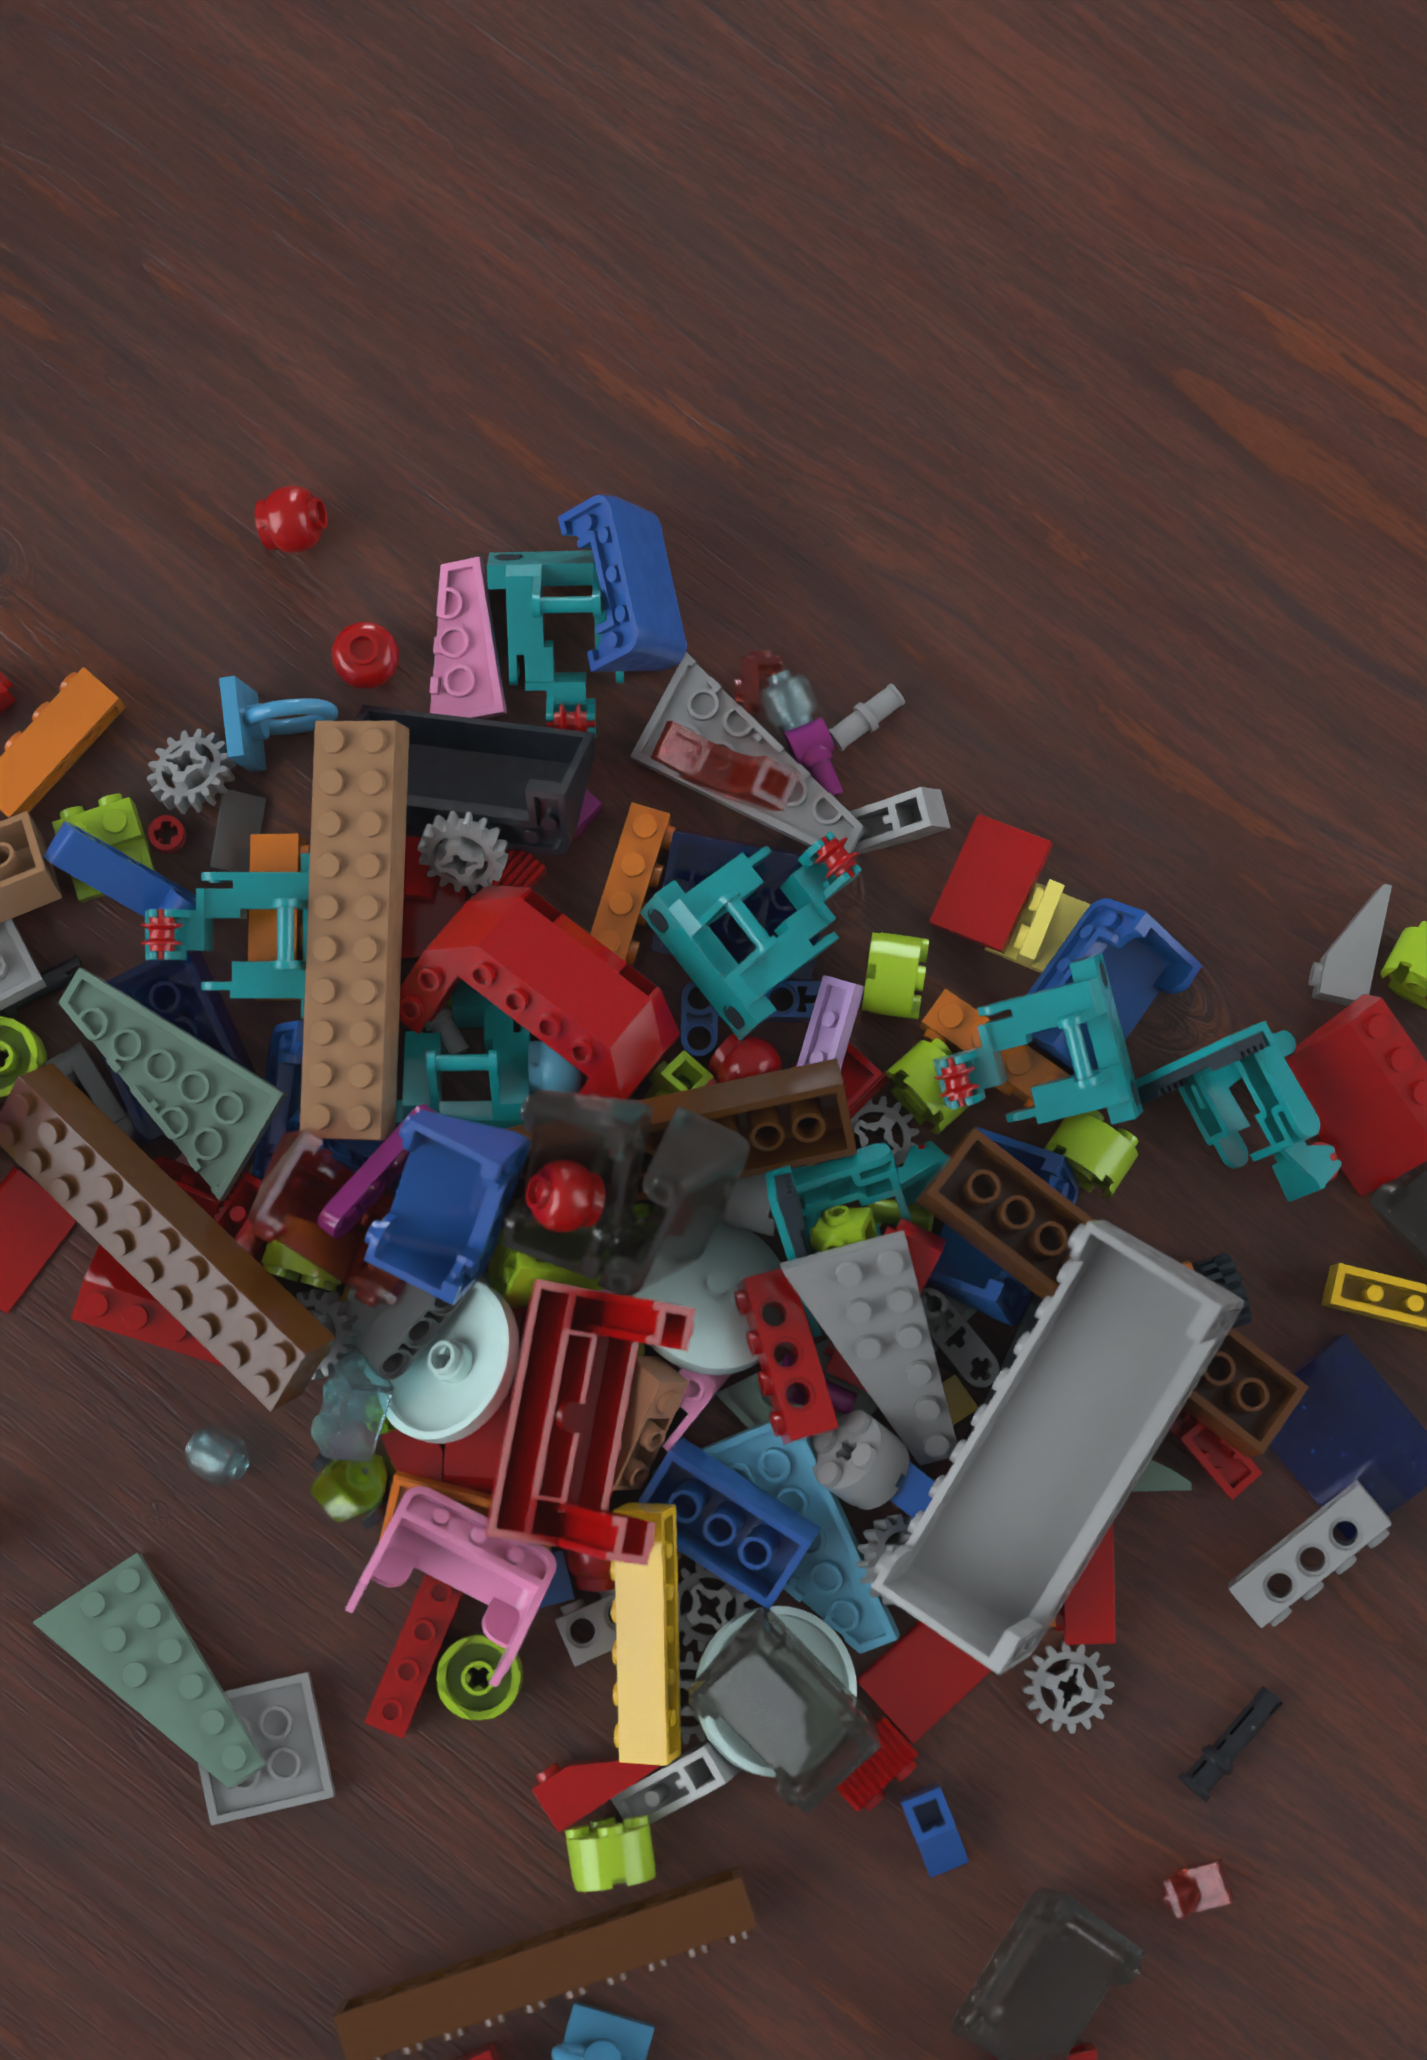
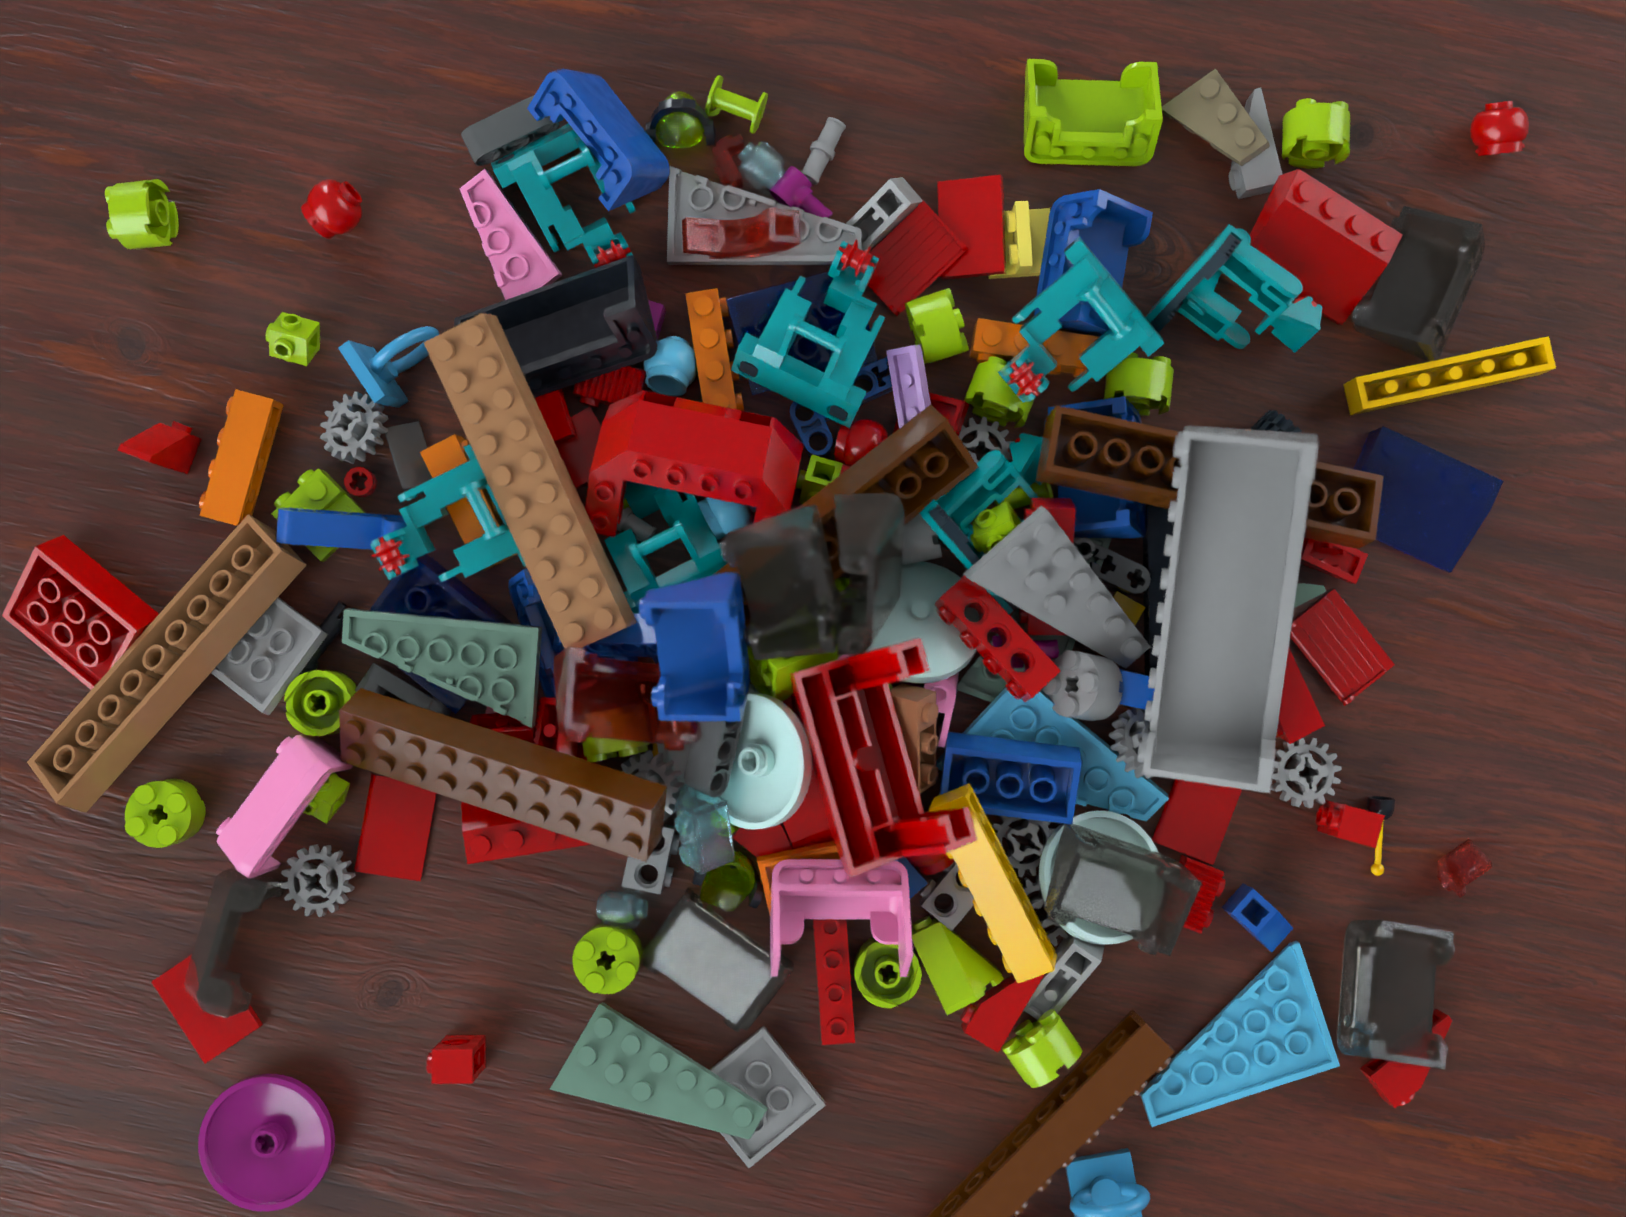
camera: 25 degrees left, 5 degrees up
(78, 426) = (141, 214): none -> lime brick
(154, 1519) = (599, 975): none -> lime brick
(174, 641) = (293, 338): none -> lime brick
(286, 1420) = (659, 859): none -> light grey brick
(291, 1569) = (715, 962): none -> clear smoke windscreen
(365, 655) = (437, 281): red piece -> none
(366, 1184) = (633, 662): magenta beam -> none
(462, 852) = (581, 388): light grey gear -> none
(520, 527) = (505, 133): none -> dark grey beam
(556, 1705) = (952, 964): none -> lime slope
(565, 1196) = (784, 601): red piece -> none
(576, 876) = (671, 367): none -> medium azure piece
(722, 610) = (680, 122): none -> cap
(792, 619) = (735, 104): none -> lime piece
(860, 1975) = (1255, 1043): none -> medium azure wing
(907, 885) = (913, 257): none -> red piece
(1088, 1768) = (1349, 823): none -> red brick
(1136, 1775) = (1383, 806): none -> black hinge
(1180, 1564) = (1339, 647): none -> red piece
(1184, 825) = (1091, 118): none -> lime windscreen
(1218, 1758) = (1432, 770): black pin -> none
(1327, 894) = (1218, 118): none -> dark tan wing
(1350, 1505) = (1428, 576): light grey brick -> none

